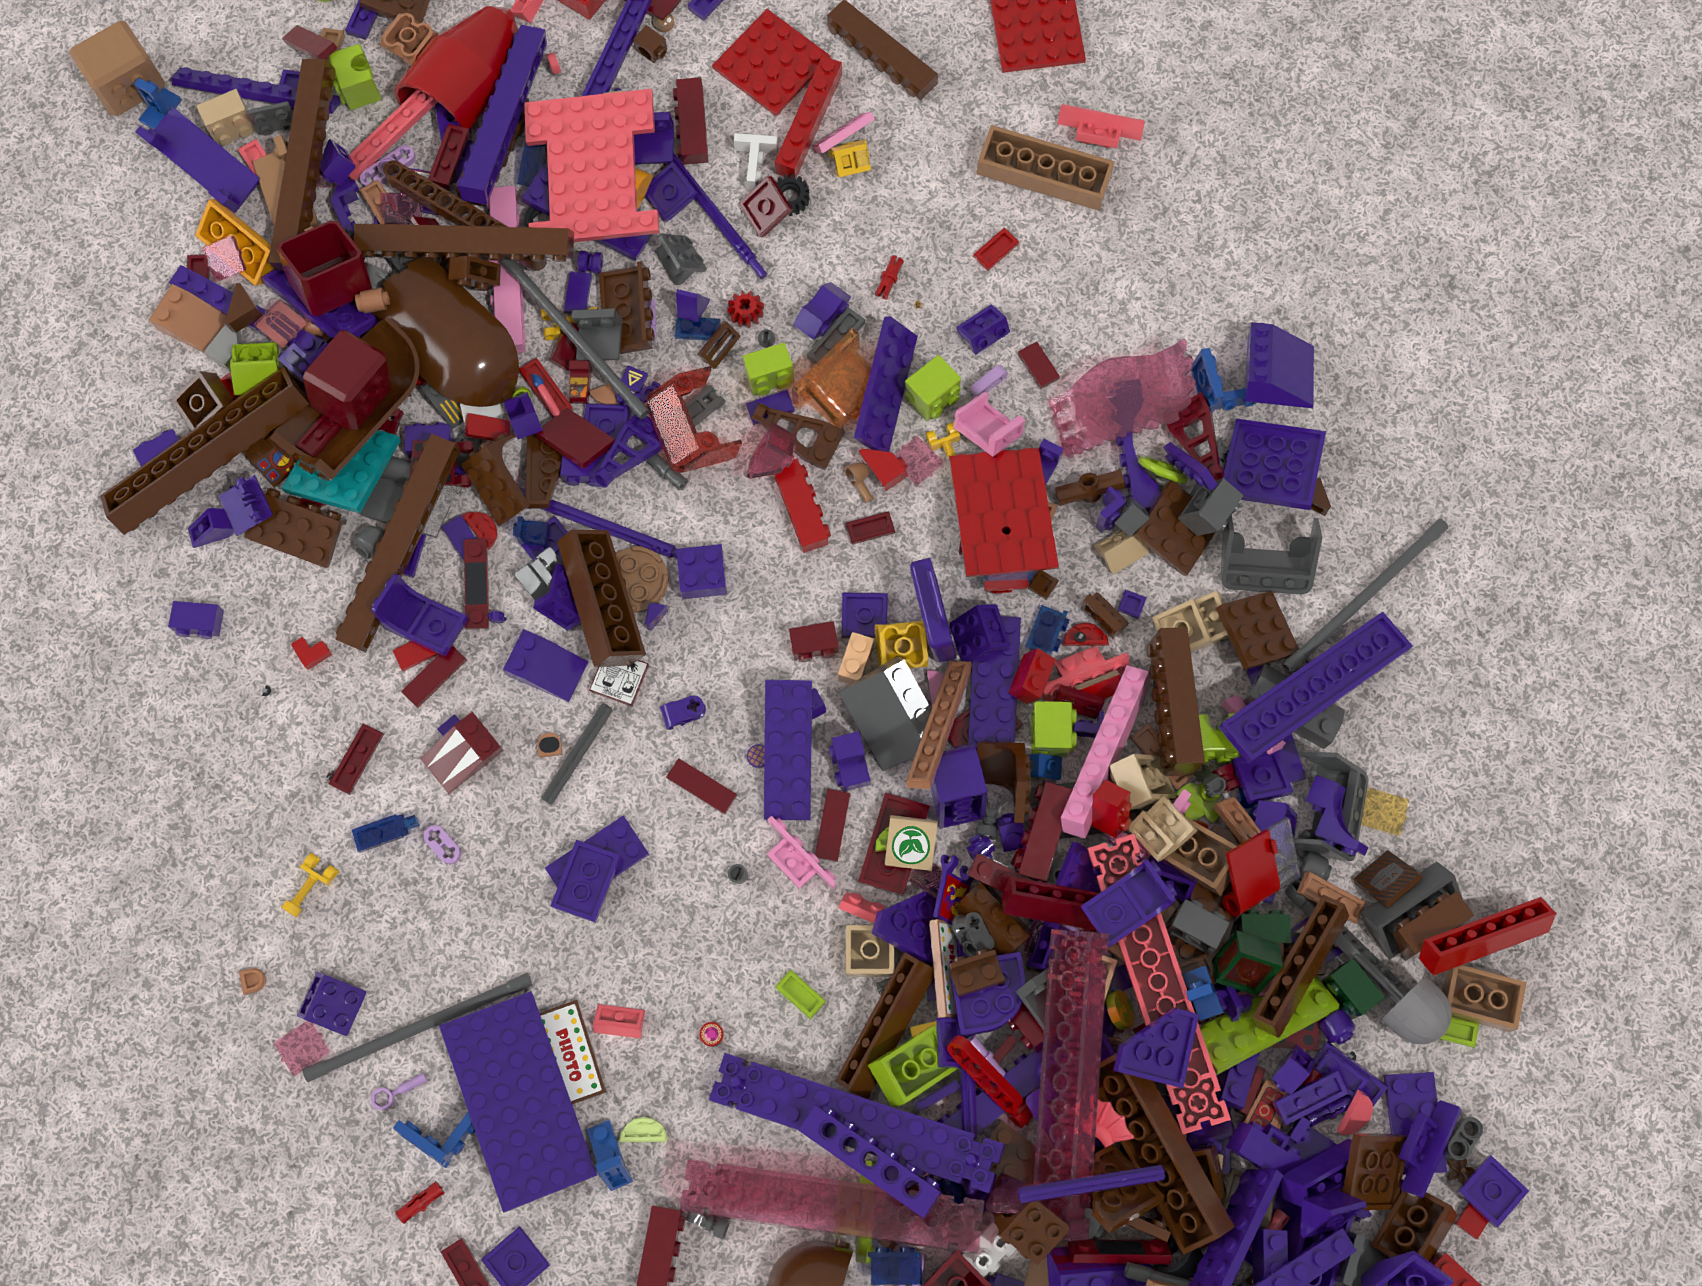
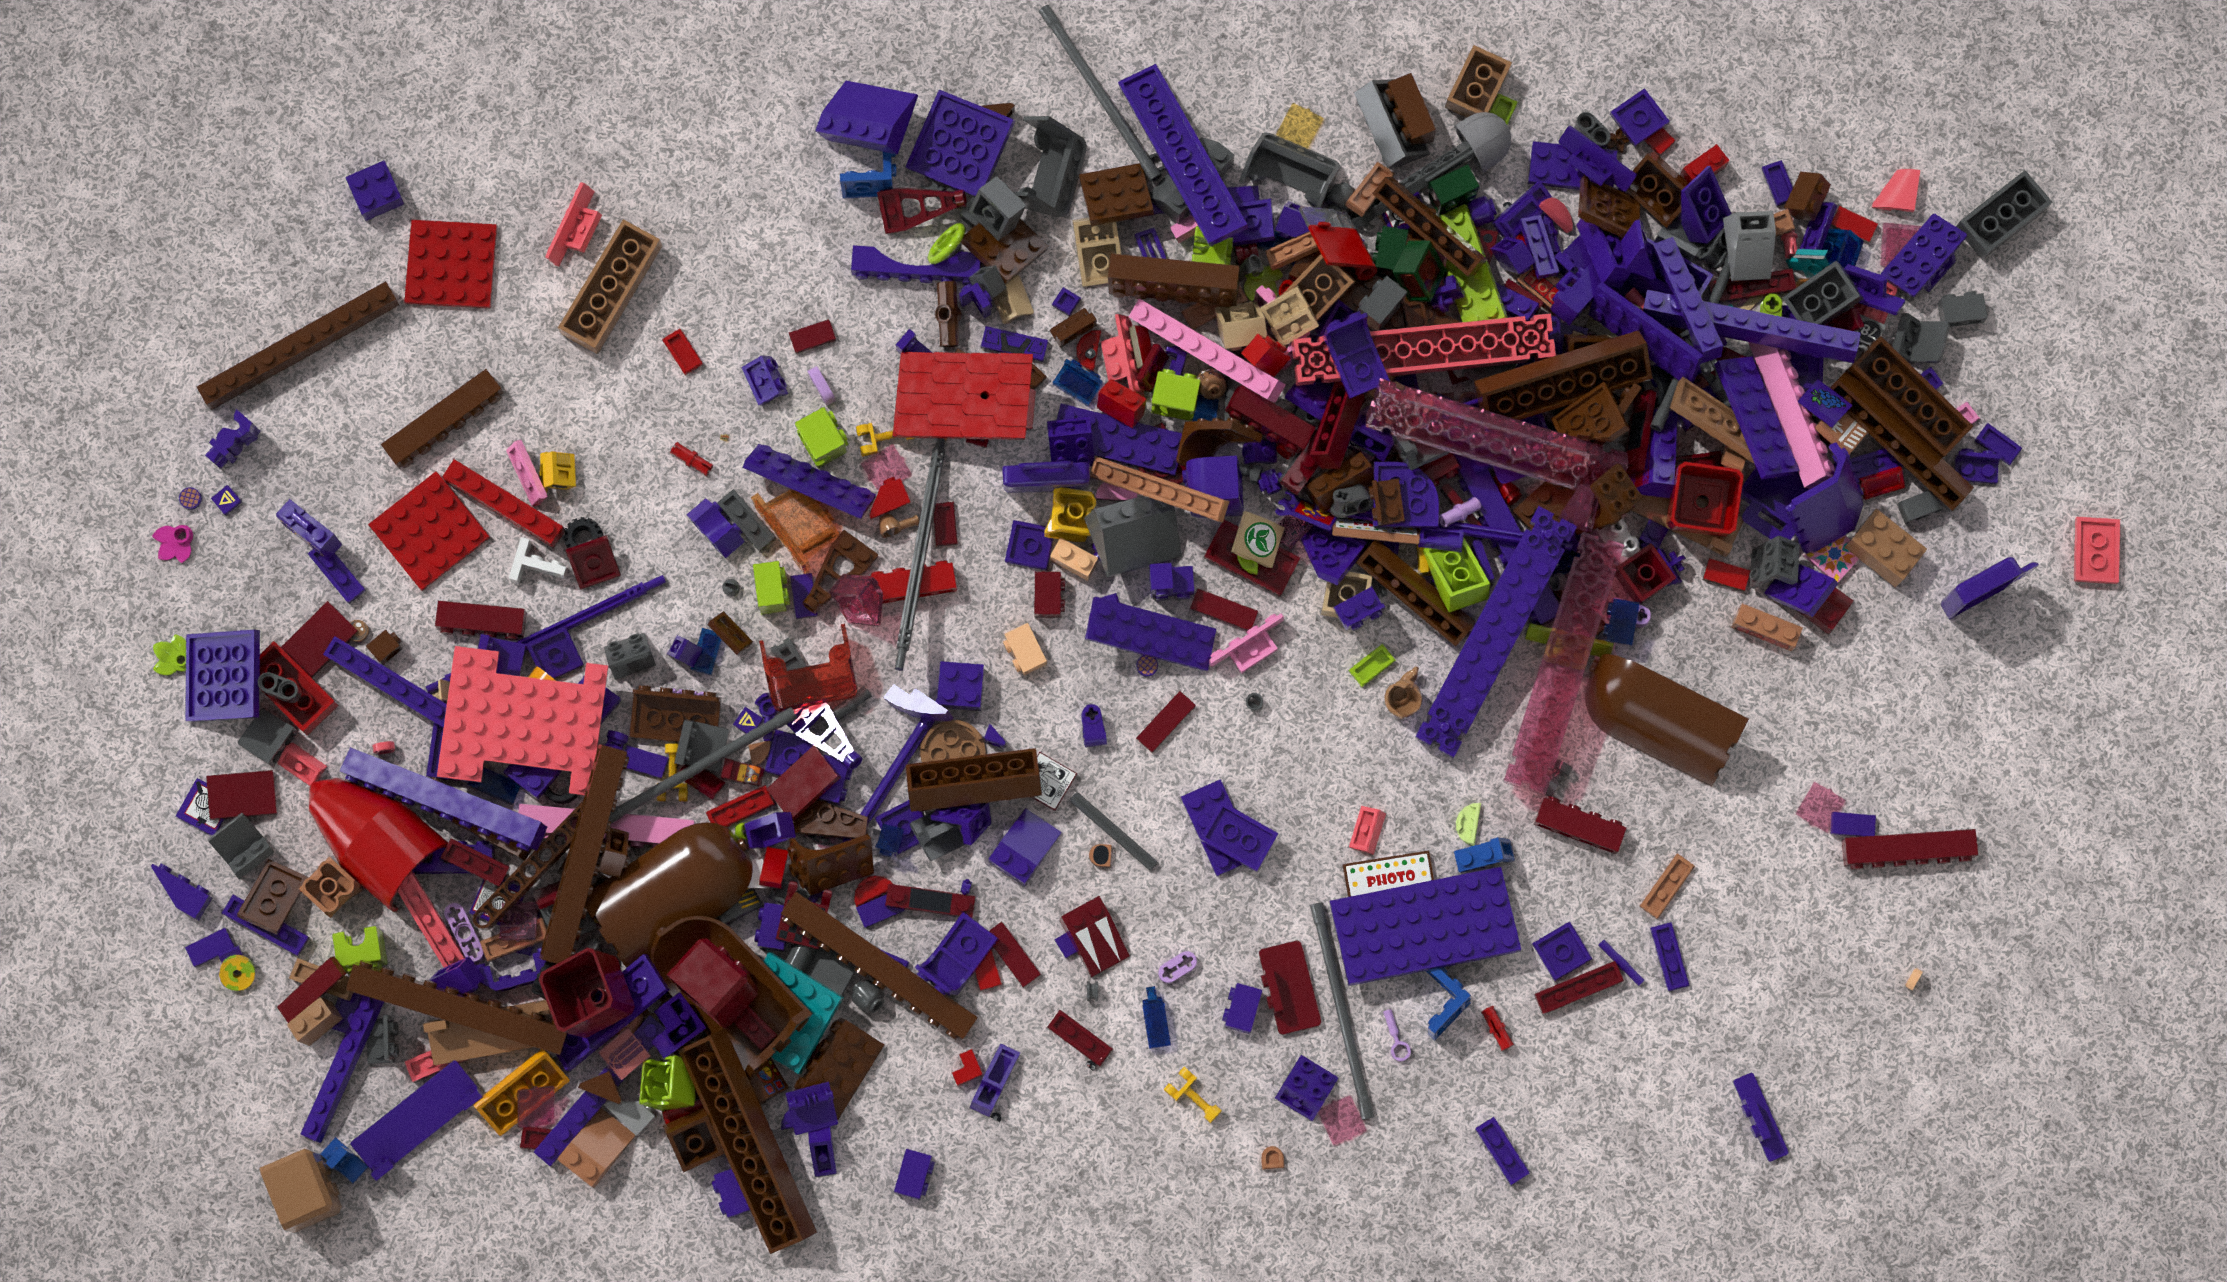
camera: 85 degrees left, 5 degrees up
(226, 117) = (379, 1086): tan brick -> none
(282, 53) = (314, 1021): none -> medium nougat brick
(284, 1230) = (1502, 1151): none -> dark purple plate
(301, 681) = (994, 1080): none -> dark purple slope
(372, 300) = (628, 952): nougat brick -> none
(405, 761) = (1092, 991): none -> dark grey bush
(405, 919) = (1242, 1008): none -> dark purple brick
(435, 965) = (1289, 987): none -> dark red bracket
(539, 384) = (736, 812): coral piece -> none
(675, 530) = (916, 705): none -> slope
(711, 1034) = (1393, 749): tile -> none
(745, 316) = (694, 608): red gear -> none
(752, 628) = (1025, 649): none -> light nougat brick
(769, 1023) = (1404, 696): none -> medium nougat hair
(814, 1129) = (1577, 582): dark purple brick -> none
(829, 503) = (920, 553): none -> dark grey axle
(852, 964) = (1359, 609): none -> dark purple bracket
(856, 905) = (1303, 599): coral plate -> none
(965, 1055) = (1494, 501): red beam -> none
(987, 425) = (869, 394): bright pink panel -> none
(1070, 765) = (1212, 383): none -> medium nougat head
(1074, 560) = (1011, 342): none -> dark purple tile
(1091, 1184) = (1586, 437): dark purple axle -> none
(1110, 1125) = (1538, 413): coral arm -> none
(1120, 1010) = (1438, 388): piece -> none
(1124, 397) = (869, 263): clear pink animal -> none
(1160, 1049) = (1484, 356): dark purple plate -> none
(1189, 466) = (957, 216): dark purple plate -> none
(1202, 993) = (1438, 313): blue bracket -> none
(1224, 670) = (1145, 233): none -> dark purple tile
(1327, 799) = (1281, 170): dark purple arch -> none
(1387, 879) = (1362, 137): tile -> none
(1486, 936) = (1429, 66): red brick -> none

